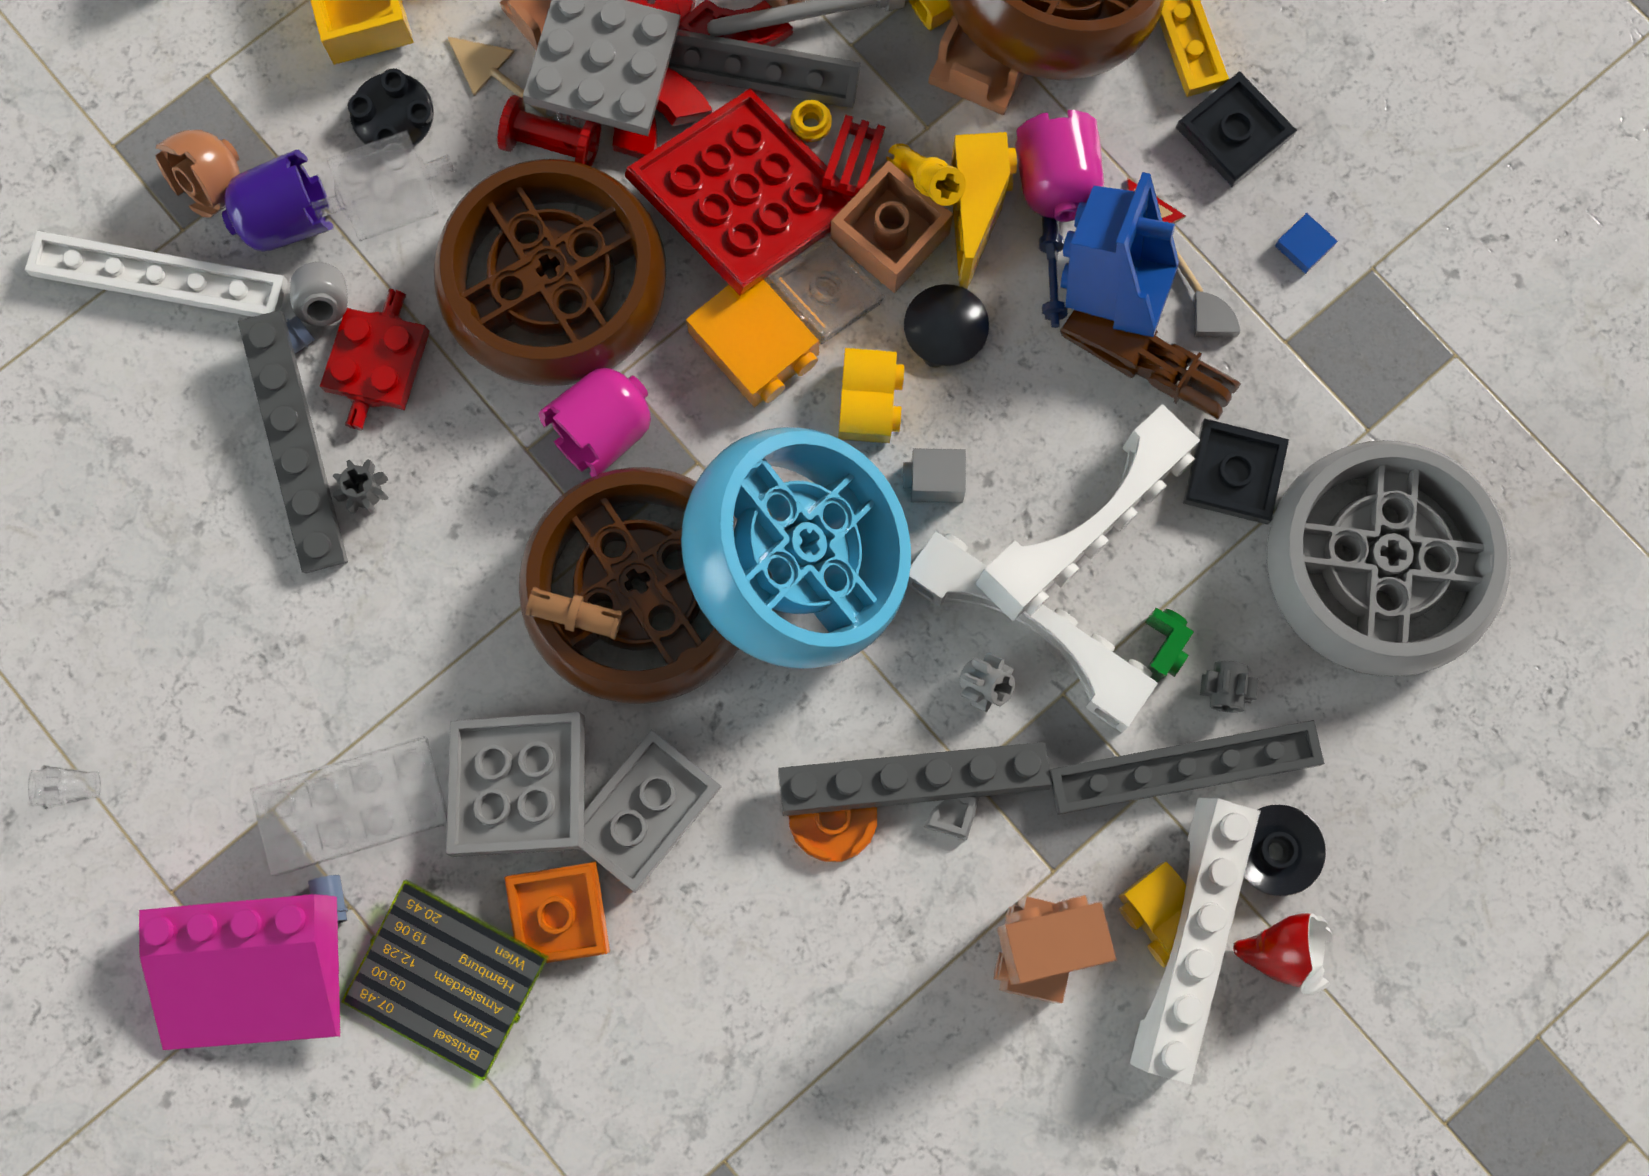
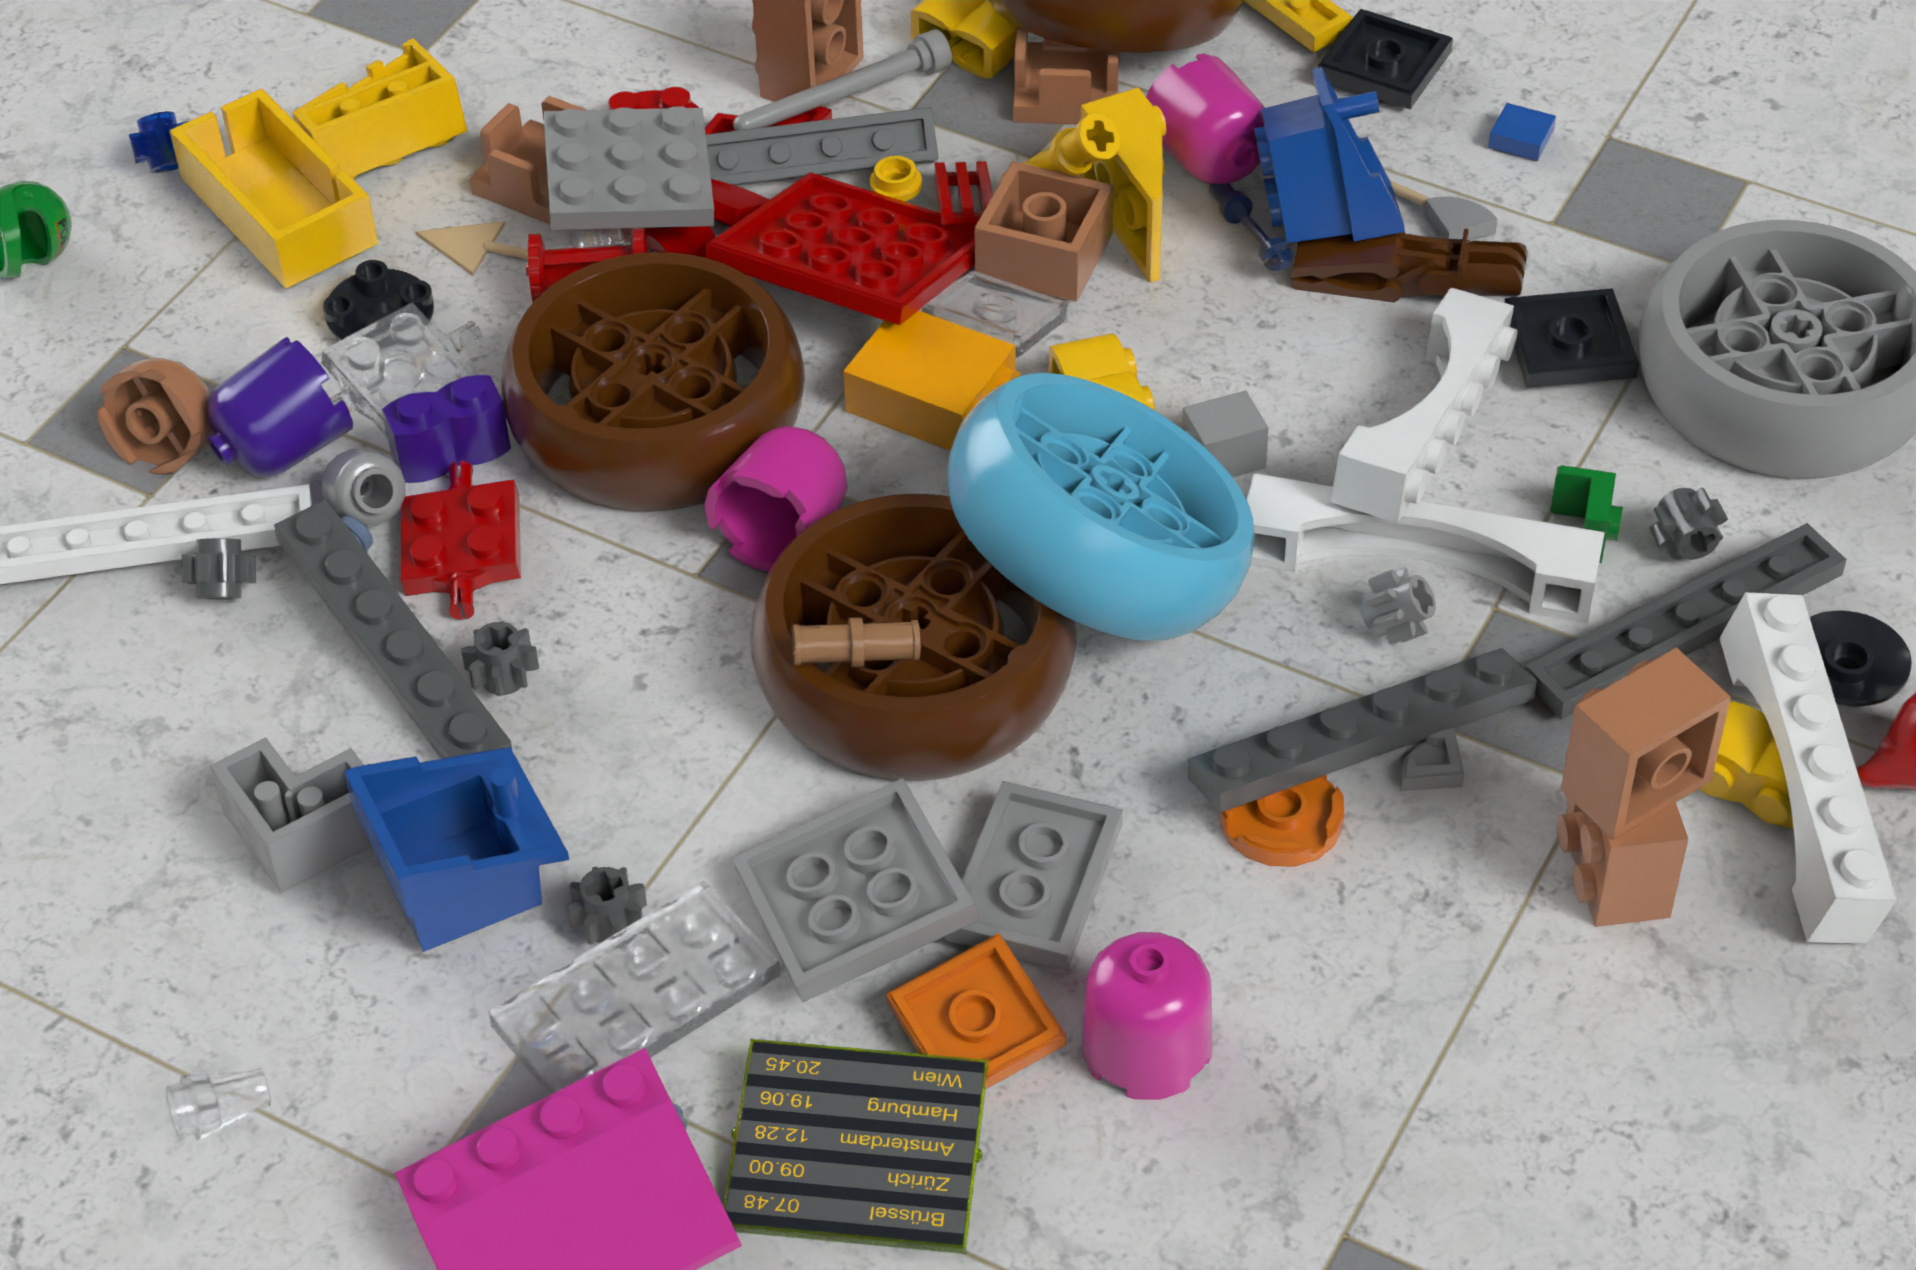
camera: 20 degrees left, 30 degrees down
(172, 585) = (289, 820): none -> light grey brick
(197, 333) = (218, 569): none -> dark grey gear
(260, 653) = (456, 839): none -> blue piece
(349, 719) = (605, 903): none -> dark grey gear
(386, 259) = (446, 427): none -> dark purple brick
(662, 966) = (1147, 1015): none -> dark pink cylinder
(946, 325) = (1154, 312): black dish -> none

